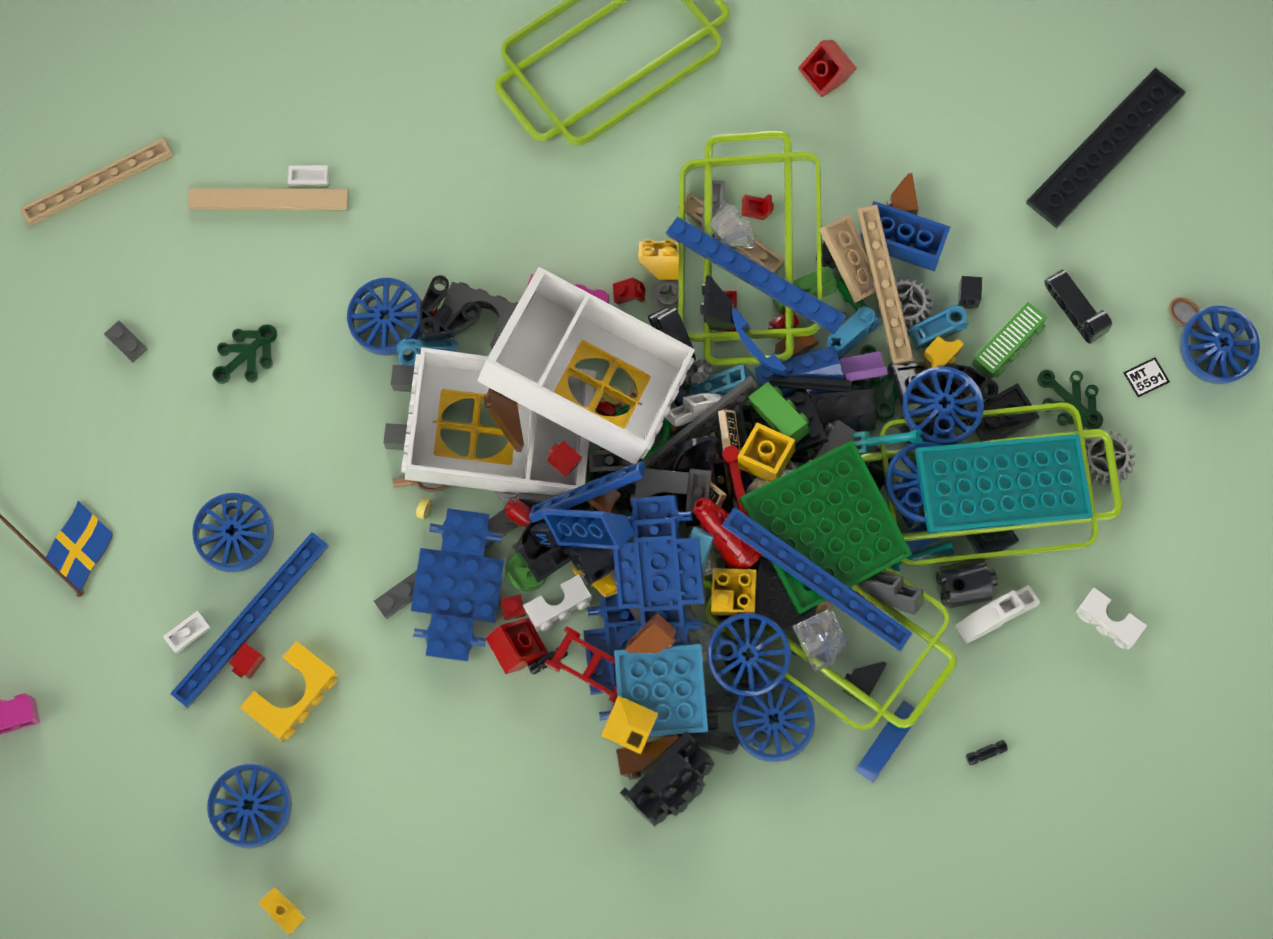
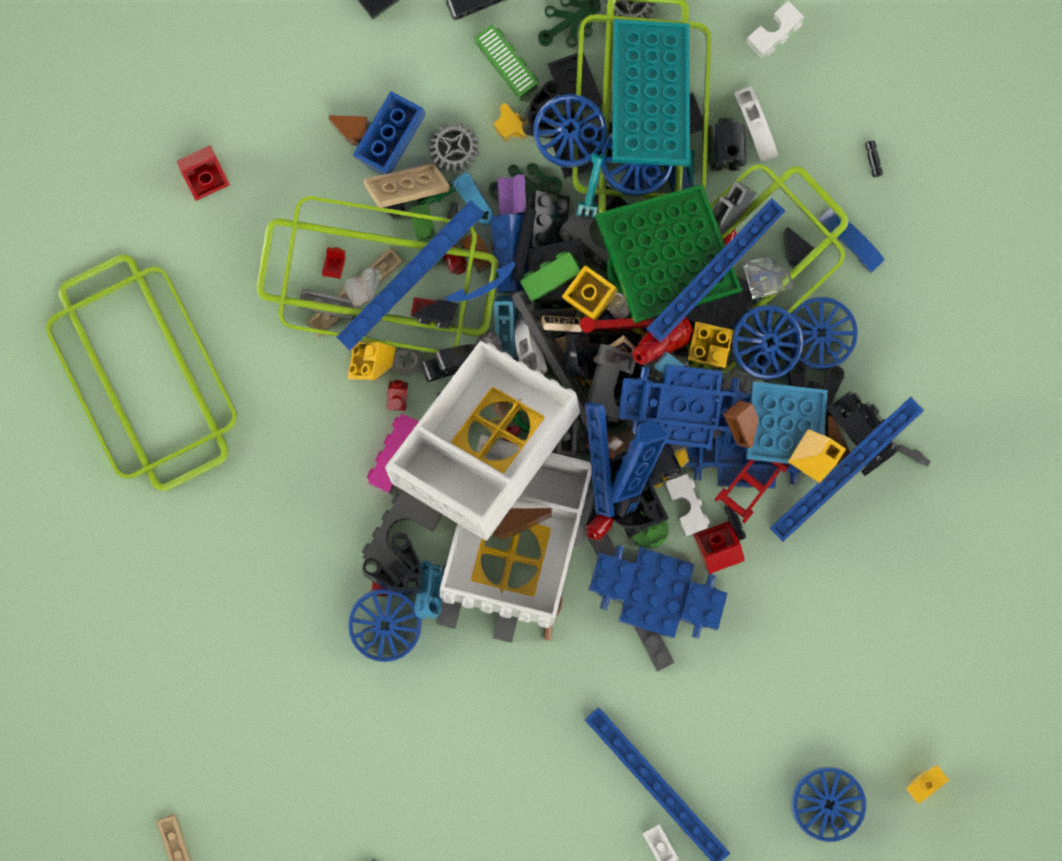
camera: 85 degrees left, 10 degrees up
(238, 523) = (568, 787): blue piece -> none
(246, 351) = (396, 761): dark green plant -> none
(246, 661) = (696, 794): red brick -> none
(268, 199) = (240, 725): tan tile -> none
(283, 721) = (756, 767): yellow arch -> none
(308, 176) = (222, 683): white tile -> none
(424, 508) = (578, 614): light yellow tile -> none
(512, 607) = (681, 546): red plate -> none
(563, 458) = (565, 475): red brick -> none
(622, 765) = (847, 468): none -> blue plate
(655, 847) = (913, 454): none -> dark grey piece
(885, 285) = (437, 160): tan tile -> none
(902, 376) = (528, 157): black plate -> none
(938, 325) = (481, 121): dark azure piece -> none
(970, 292) = (453, 87): black brick -> none

